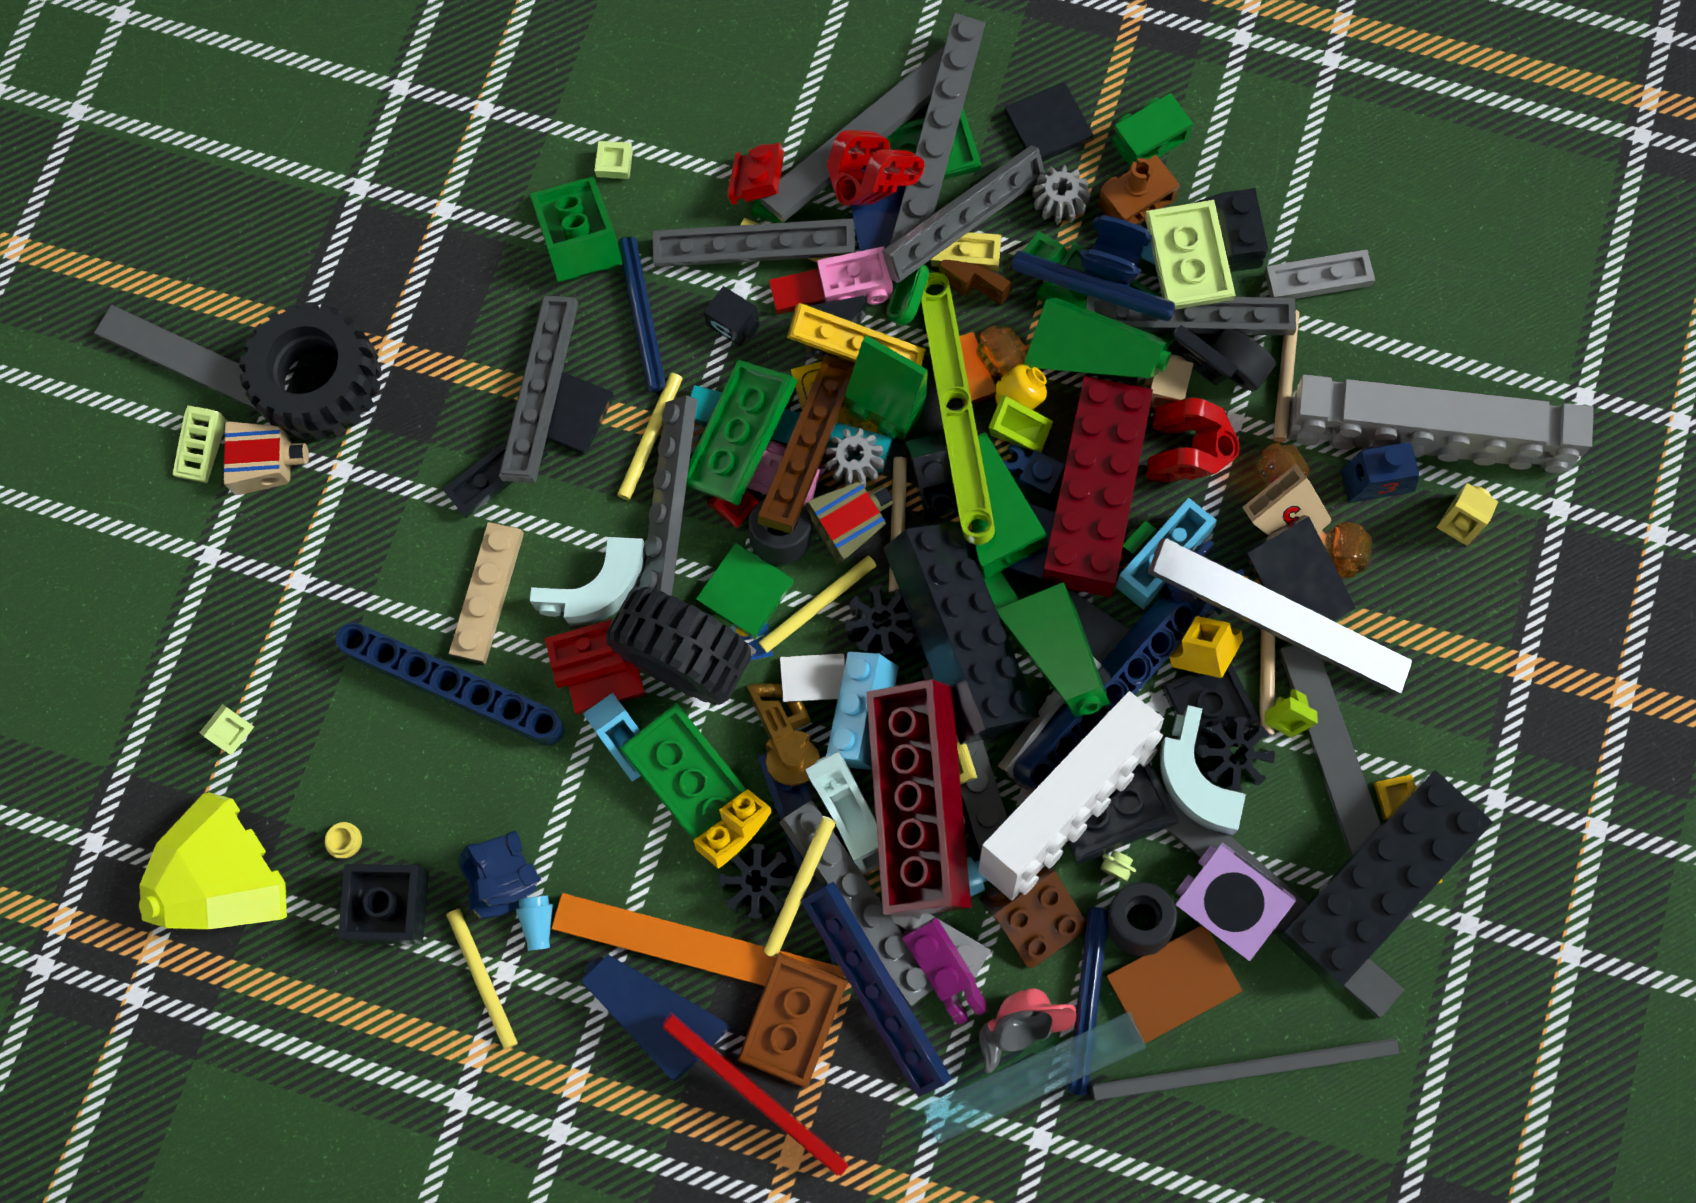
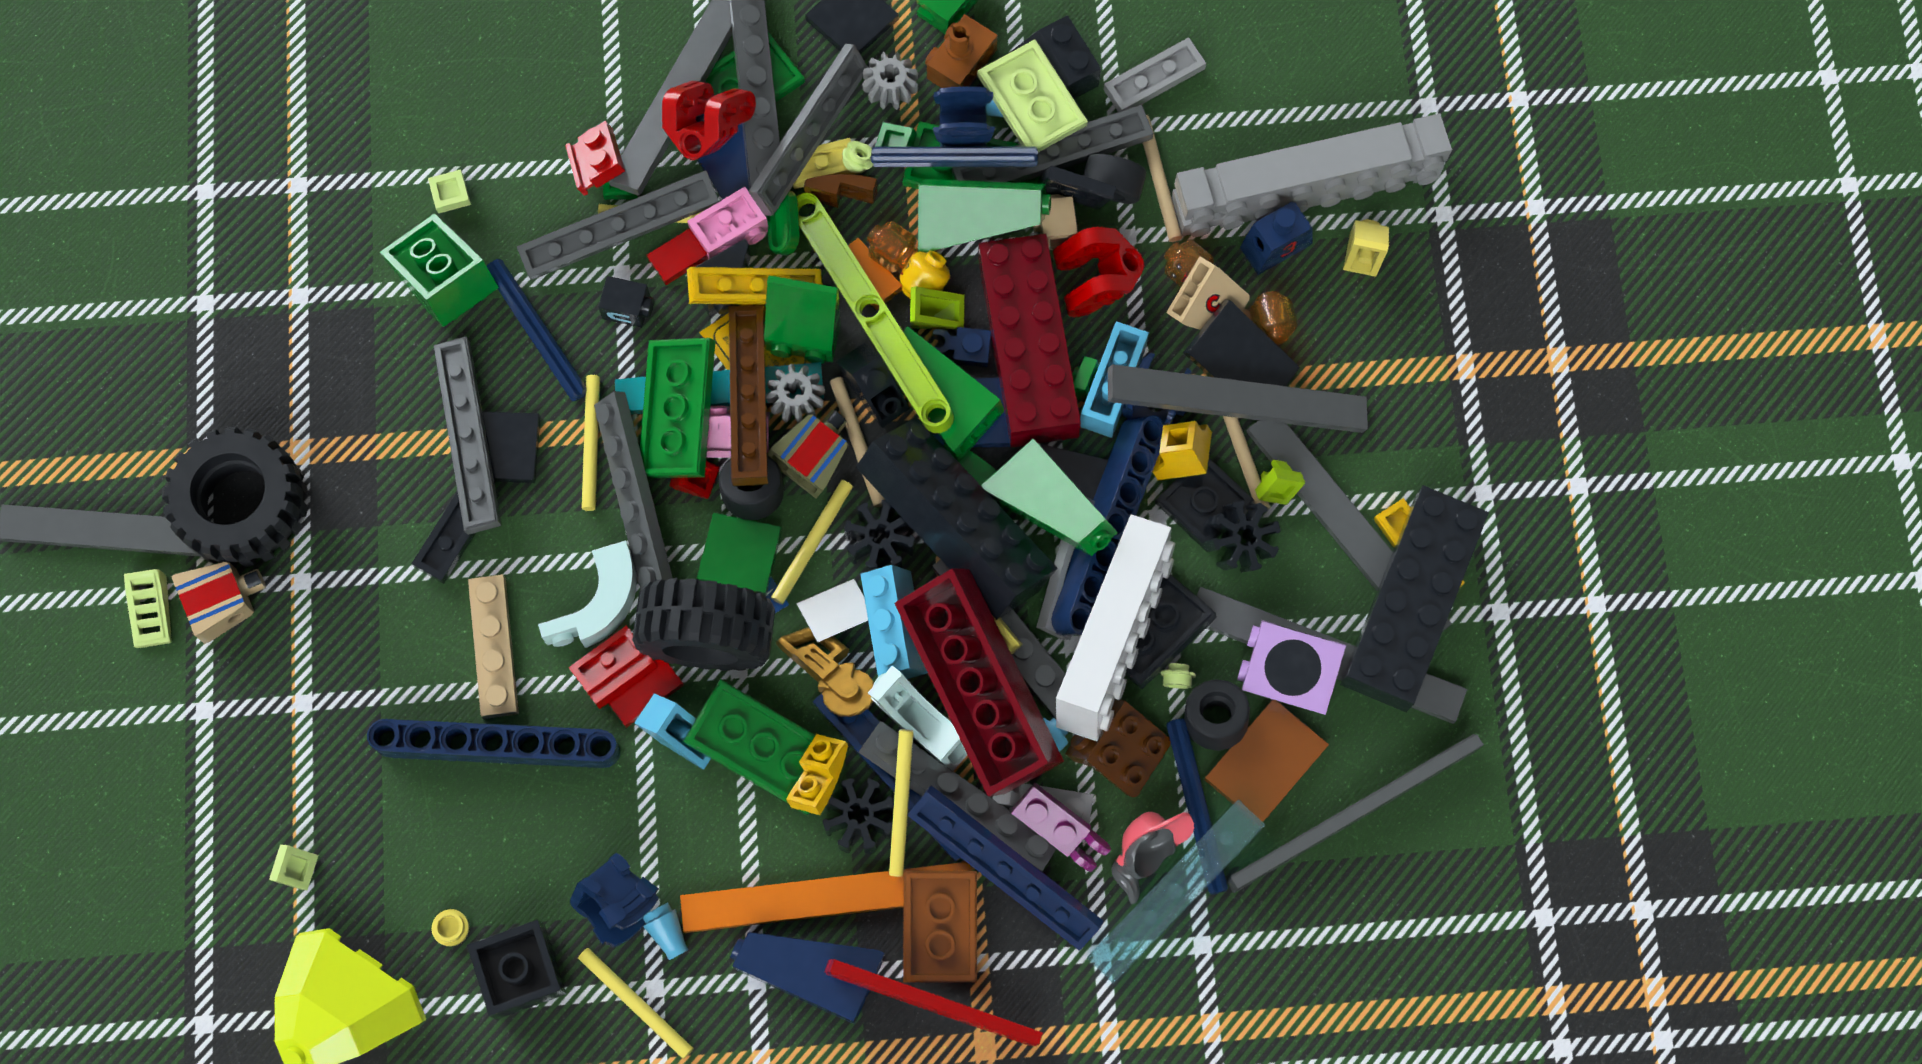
camera: 30 degrees left, 0 degrees up
(995, 259) = (854, 162): none -> yellowish green plate
(1188, 788) = (1213, 582): light aqua arch -> none

